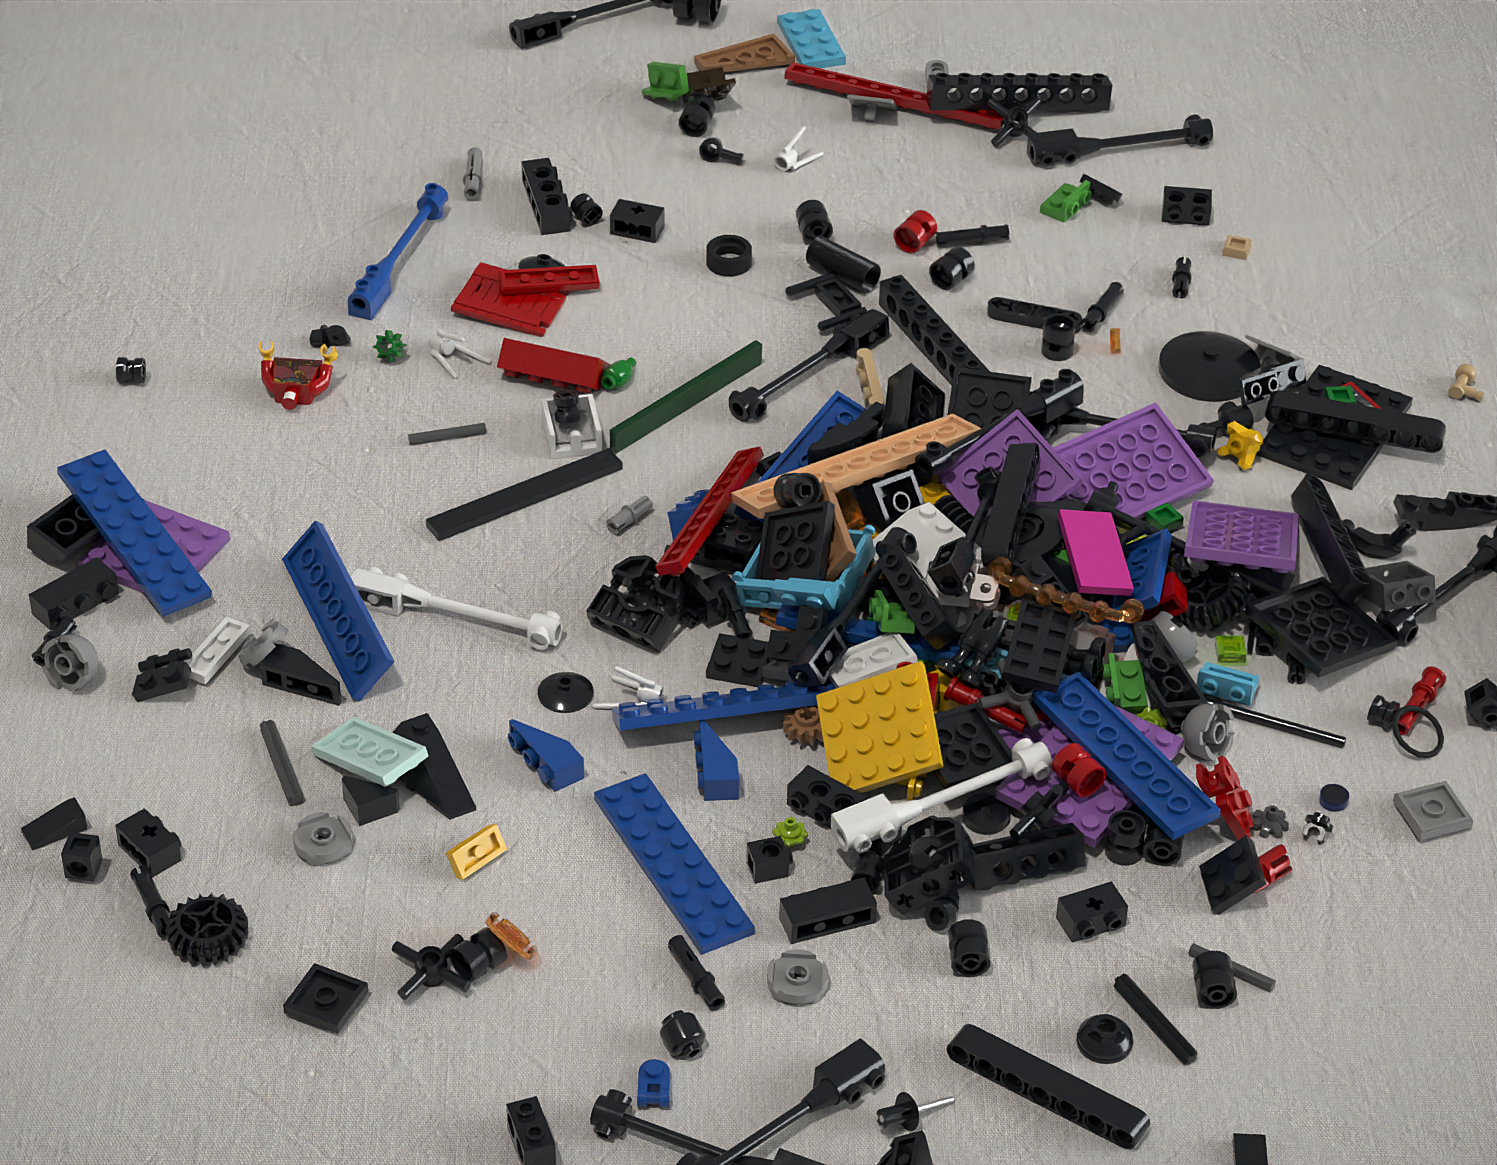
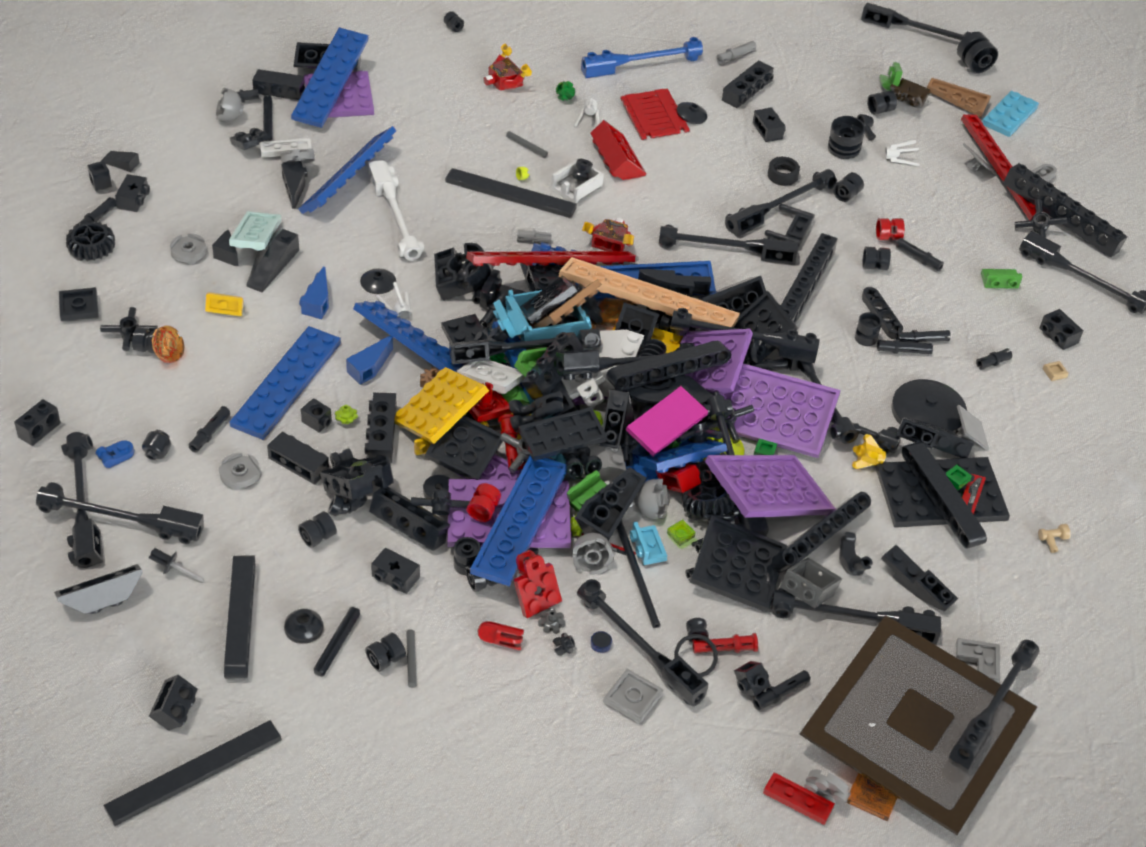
camera: 50 degrees right, 5 degrees up
(123, 636) = (267, 116): none -> black axle
(281, 762) = (230, 208): dark grey axle -> none
(330, 336) = (552, 69): black piece -> none
(506, 468) = (522, 173): none -> neon yellow hinge
(548, 279) = (681, 117): red tile -> none
(586, 209) = (755, 102): black wheel -> none
(618, 373) = (638, 178): green plant -> none
(685, 396) = (648, 210): dark green tile -> none
(704, 447) = (609, 235): none -> torso
(734, 173) = (846, 137): none -> black wheel
(782, 321) = (753, 216): none -> black bar
(797, 489) = (581, 274): black wheel -> none
(843, 263) = (826, 213): black piece -> none
(868, 377) = (741, 273): tan plate -> none
(879, 818) = (372, 438): white bar -> none
(1001, 568) = (607, 428): clear orange bar -> none
(1099, 333) = (900, 346): none -> black pin
(1107, 193) = (1029, 286): black plate -> none
(1115, 340) = (898, 355): clear orange tile -> none
(1232, 875) = (477, 619): black plate -> none
(1438, 757) = (675, 672): none -> black bar

